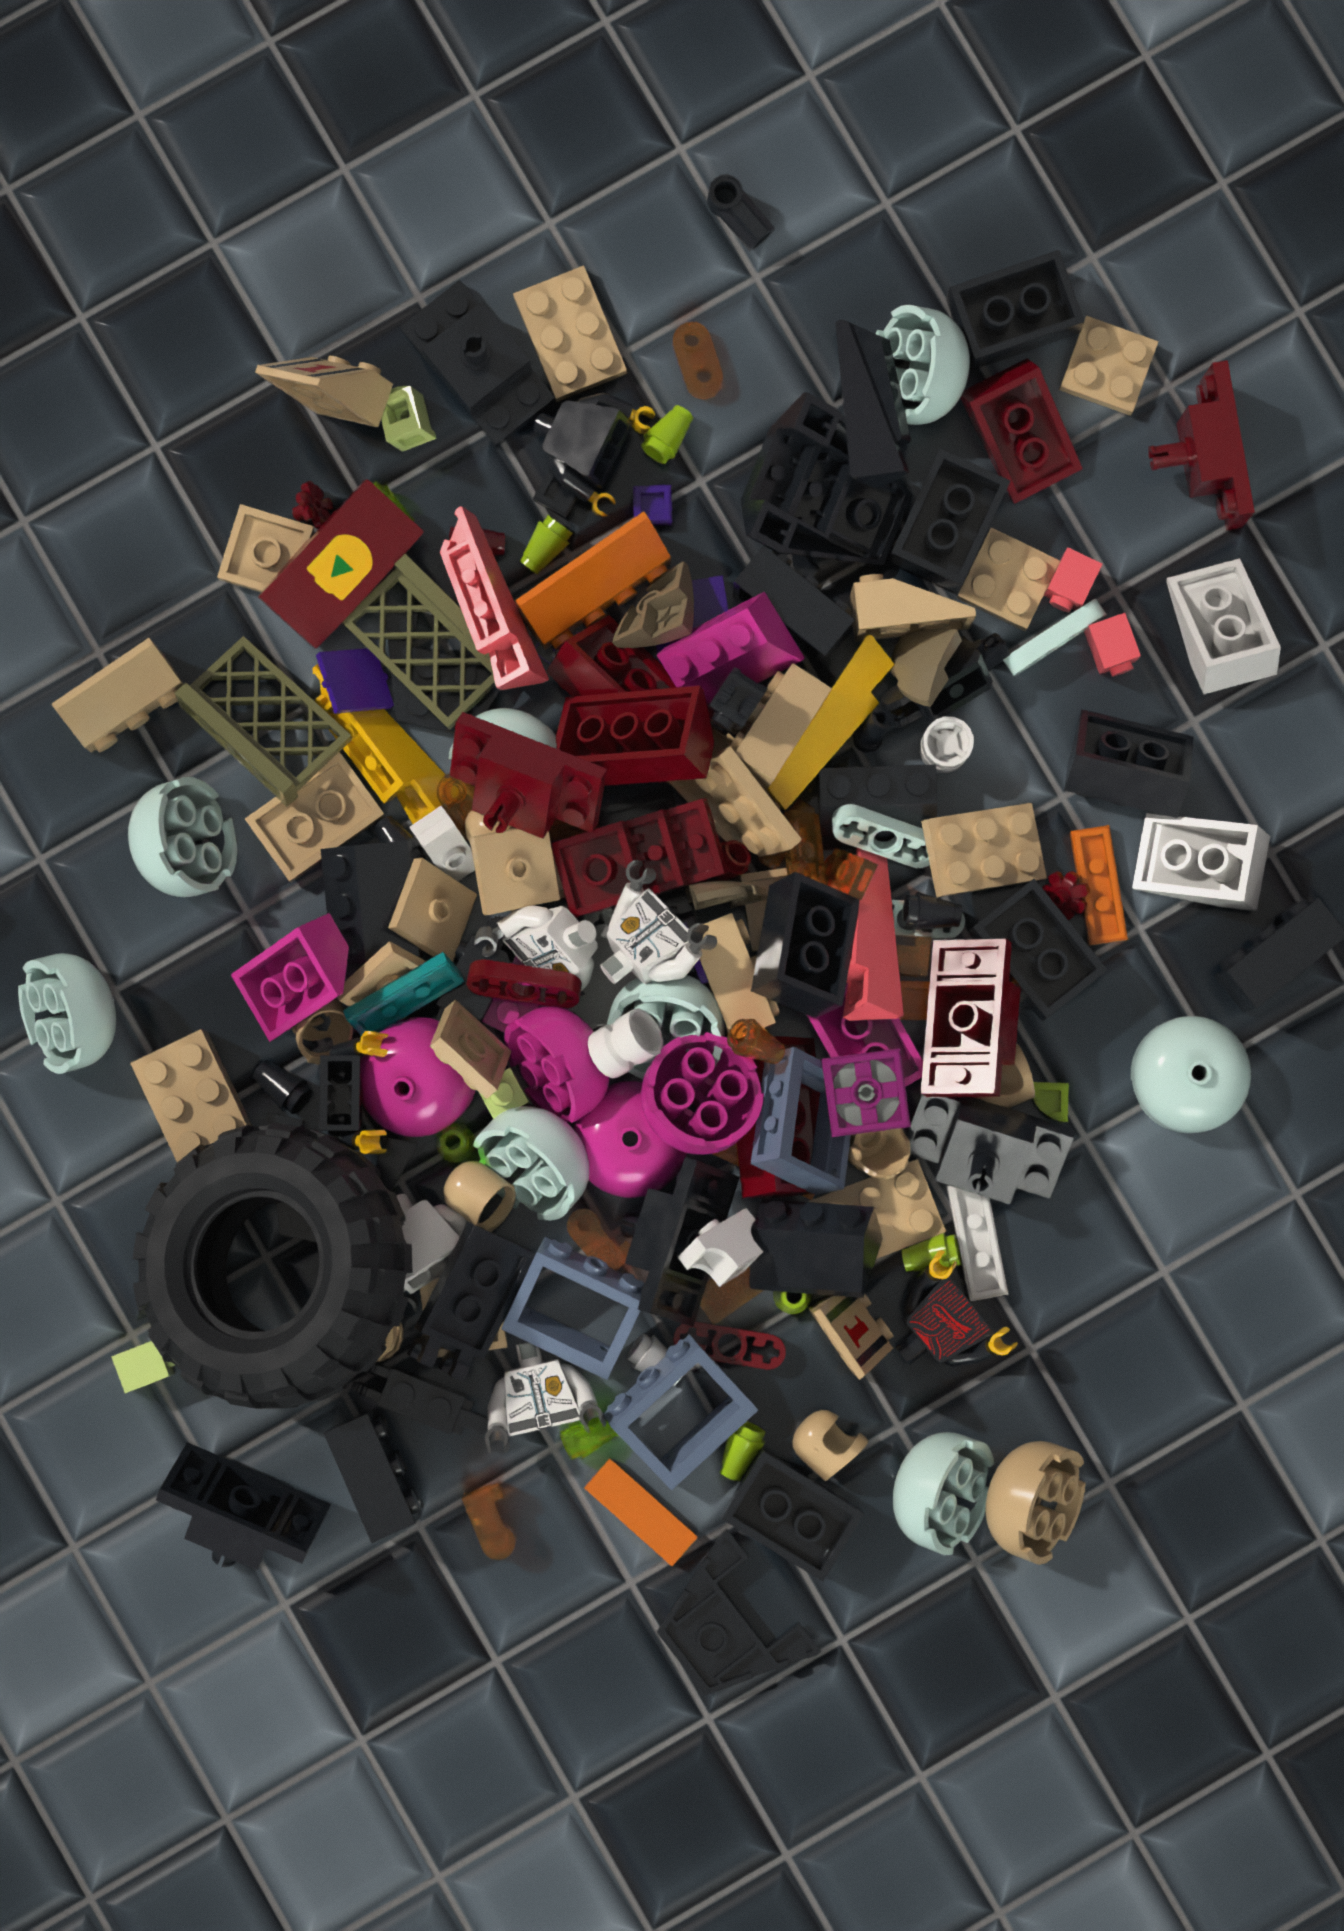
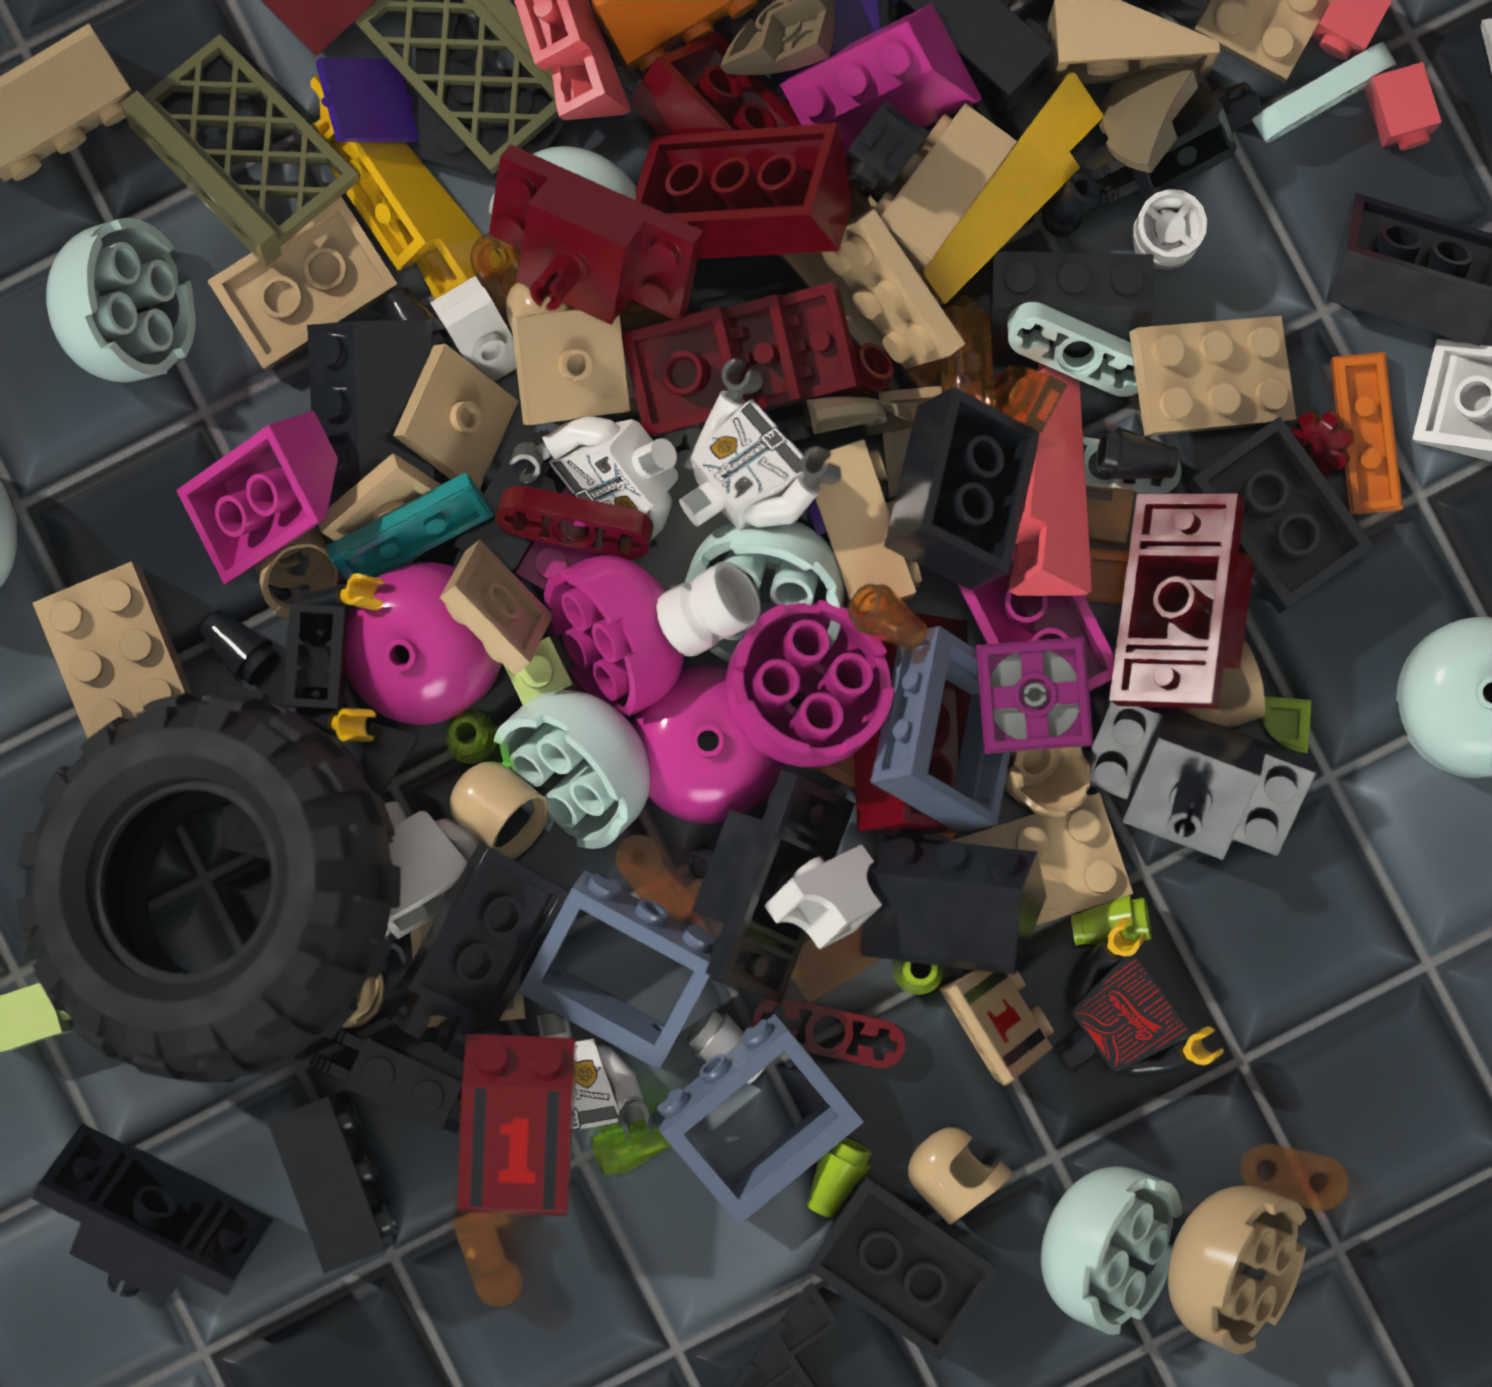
camera: 10 degrees right, 0 degrees up
(506, 1426) = (516, 1124): none -> dark red slope
(641, 1512) = (695, 1253): orange tile -> none
(977, 1244) = (1175, 913): white tile -> none
(1073, 1431) = (1293, 1174): none -> clear orange plate

